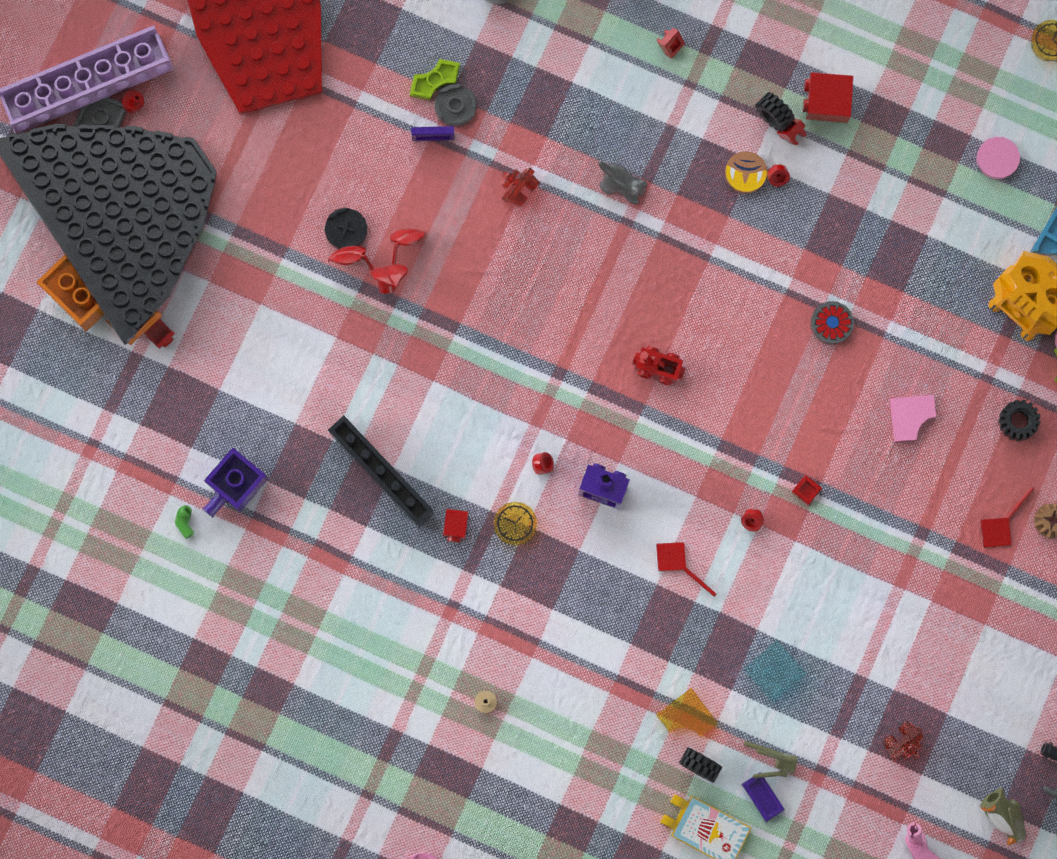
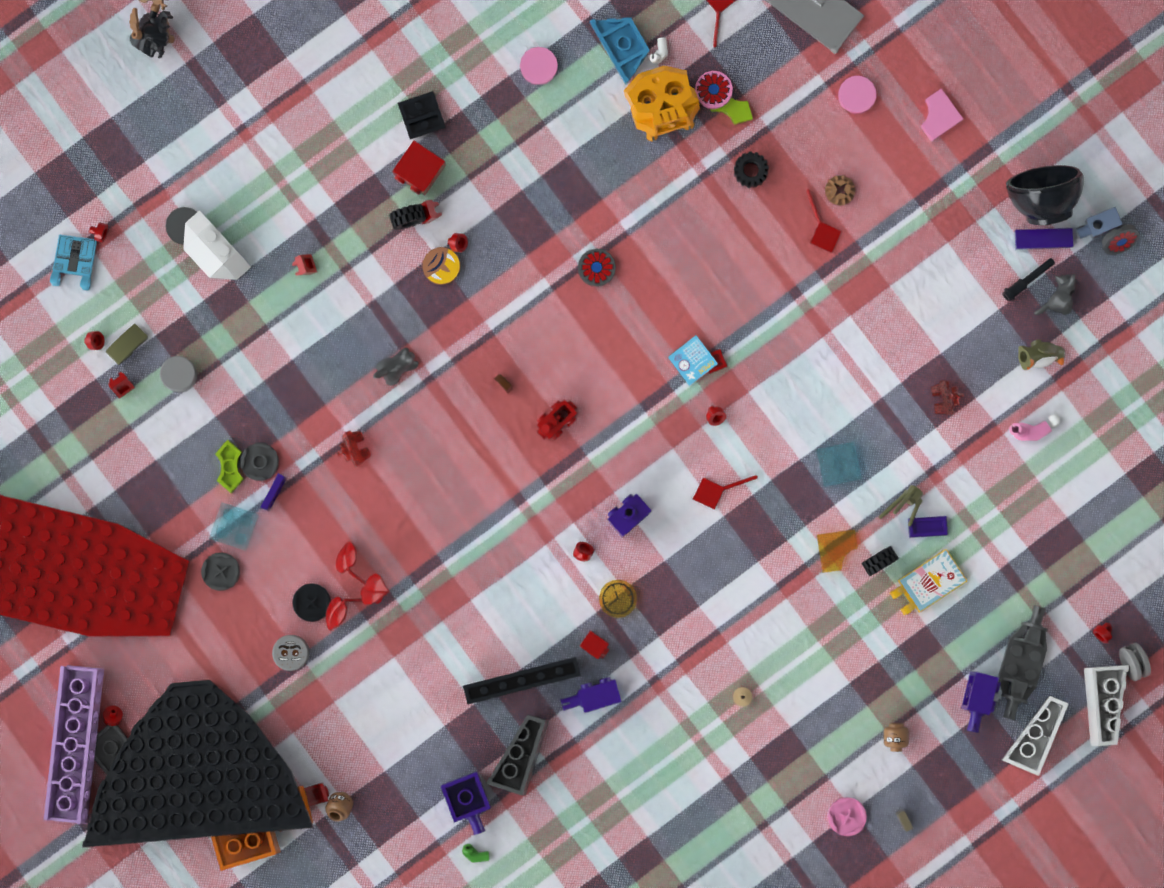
camera: 60 degrees left, 5 degrees up
(160, 362) = (339, 806): none -> medium nougat head
(285, 235) = (290, 652): none -> light grey head
(304, 512) = (518, 762): none -> dark grey wedge
(328, 127) = (220, 571): none -> dark grey tile
(378, 114) = (233, 526): none -> clear light blue plate
(404, 551) = (594, 696): none -> dark purple brick
(666, 291) = (503, 383): none -> reddish brown tile
(795, 467) = (692, 360): none -> medium azure sticker
(882, 73) = (421, 115): none -> black slope
(909, 414) = (700, 249): bright pink tile -> none

